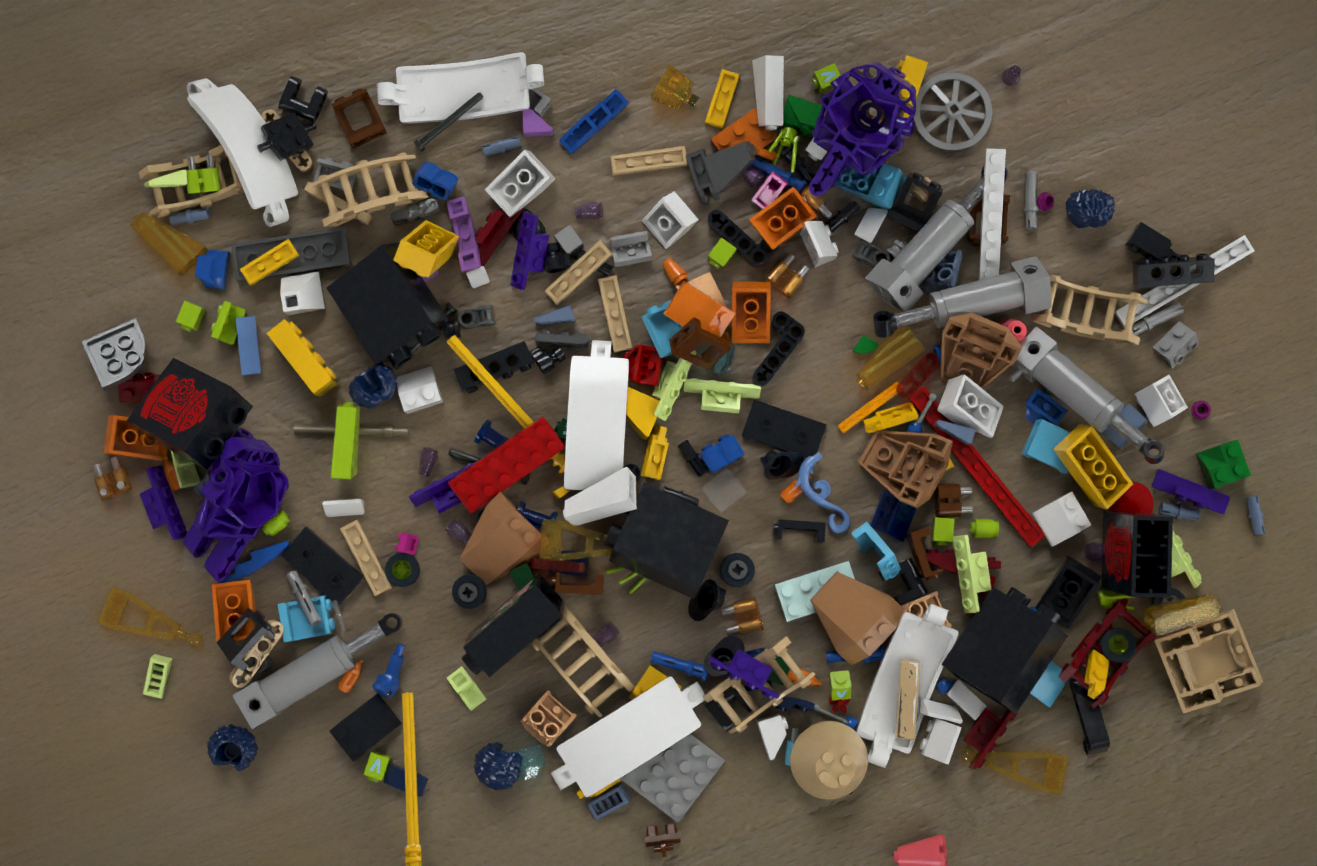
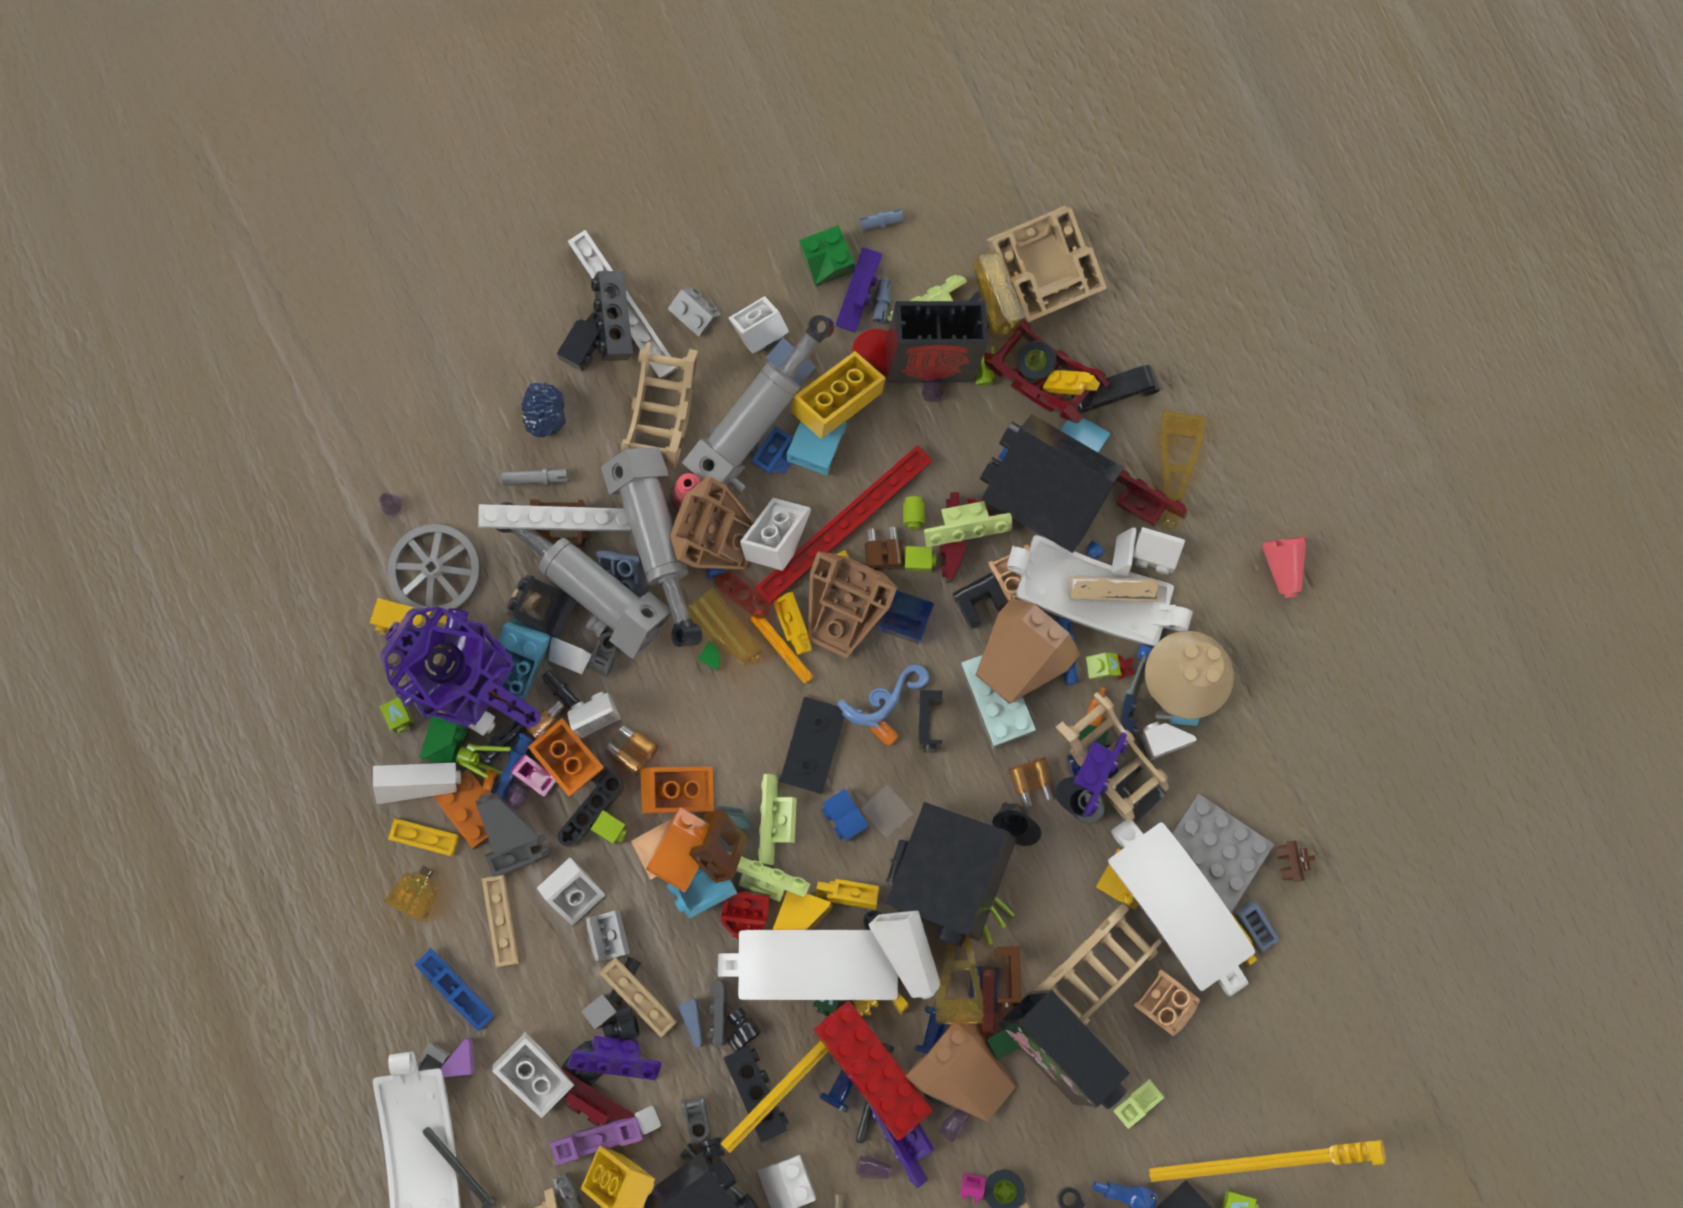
camera: 85 degrees left, 5 degrees down
(396, 778) = (1250, 1182): dark blue slope -> none
(434, 180) = (531, 1182): blue brick -> none
(472, 585) = (1017, 1103): black wheel -> none
(496, 767) = (1232, 1060): dark blue hair -> none
(501, 146) = (487, 1100): sand blue pin -> none
(532, 761) = (1220, 1027): clear light blue slope -> none
(589, 211) = (563, 988): clear purple cone -> none
(606, 634) = (1063, 940): cone -> none
(615, 314) = (685, 951): tan tile -> none
(674, 272) = (633, 882): orange cone -> none
(681, 665) = (1093, 850): blue pin -> none
(692, 458) = (851, 849): black axle -> none
(733, 574) = (981, 797): black wheel -> none
(776, 353) = (723, 758): black beam -> none
(781, 464) = (853, 746): black piece -> none
(867, 538) = (933, 644): medium azure panel -> none
(916, 426) = (801, 593): hinge -> none
(919, 554) = (949, 583): reddish brown window -> none
(959, 432) = (807, 543): sand blue slope -> none
(966, 700) = (1108, 525): white slope -> none
(1045, 201) = (535, 460): magenta plate -> none
(1061, 519) = (898, 427): white slope -> none
(1069, 590) = (978, 416): black slope -> none
(1147, 324) = (671, 342): light grey pin -> none
(1206, 410) = (766, 276): magenta plate -> none

